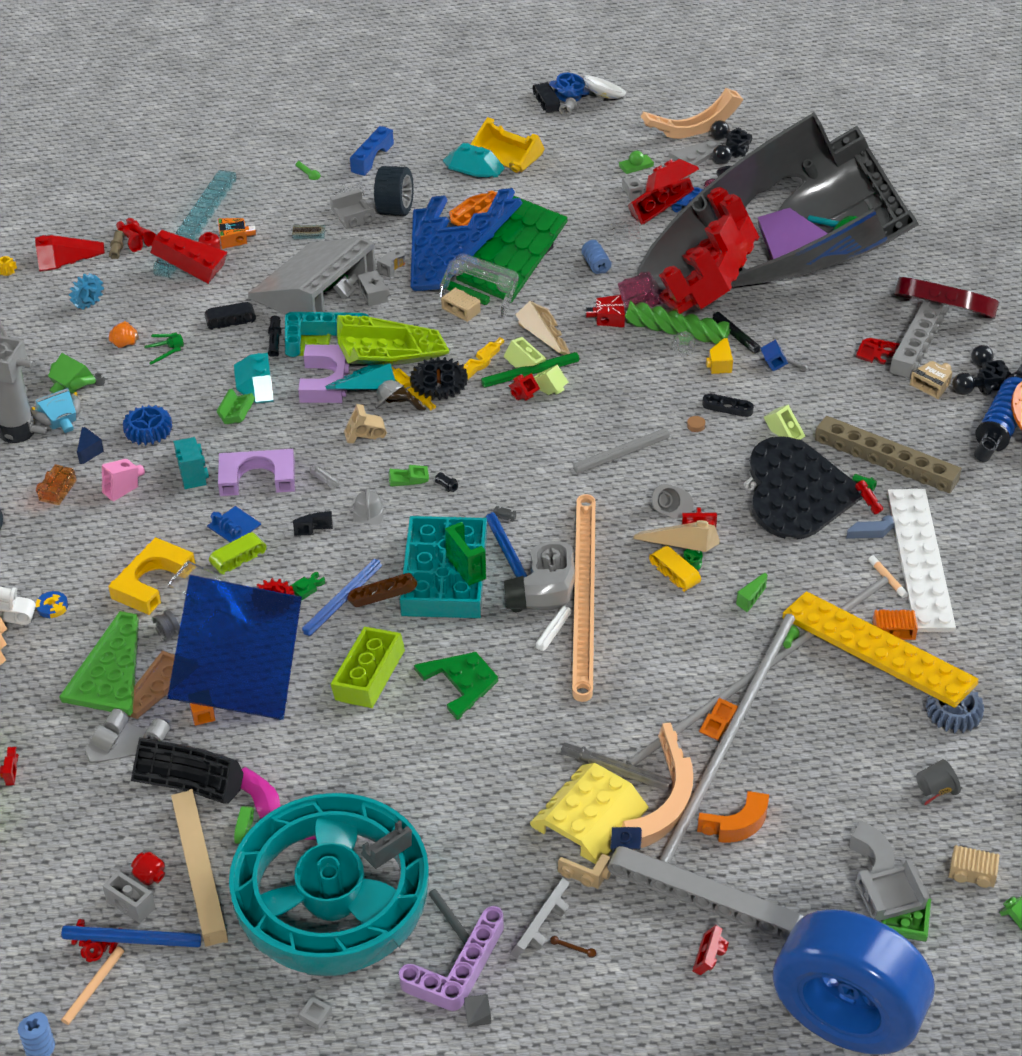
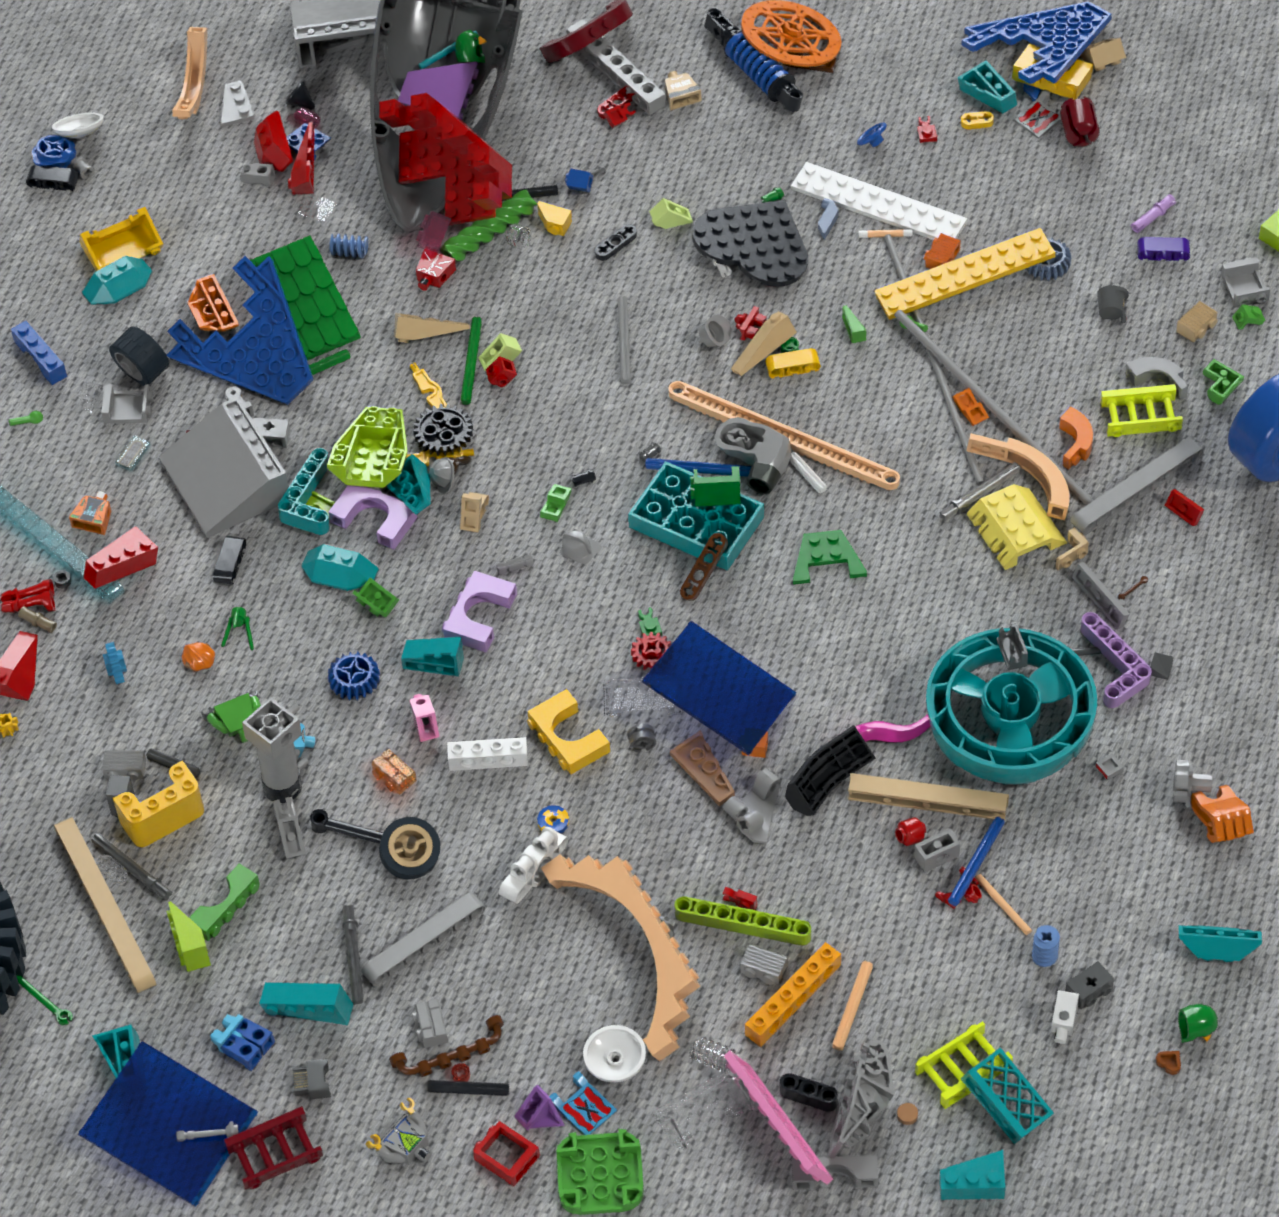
camera: 60 degrees left, 10 degrees up
(88, 446) = (351, 730): dark blue slope -> none
(101, 533) = (487, 754): none -> white brick
(108, 672) = (672, 801): bright green wing -> none
(210, 239) = (100, 537): red head -> none
(232, 524) = (536, 652): blue hinge -> none
(237, 552) = (579, 660): lime beam -> none
(244, 823) = (901, 753): bright green beam -> none
(274, 334) = (278, 532): black pin -> none
(307, 524) = (577, 592): black slope -> none
(336, 602) = (672, 592): axle -> none
(368, 667) = (781, 610): lime brick -> none
(461, 304) = (343, 374): tan brick -> none
(504, 278) = (316, 343): clear windscreen -> none
(522, 354) = (456, 355): yellowish green slope -> none
(627, 837) = (1065, 510): dark blue bracket -> none
(636, 162) = (217, 156): bright green tile -> none
(696, 424) = (624, 274): medium nougat tile -> none
(736, 143) = (242, 64): black piece -> none
(823, 845) = (1145, 396): none -> neon yellow fence
(869, 497) = (795, 201): red axle -> none
(888, 454) = (751, 165): dark tan brick -> none
(892, 891) = (1201, 374): light grey panel -> none
(988, 378) = (702, 49): black piece -> none
(995, 521) = (872, 135): none -> blue piece

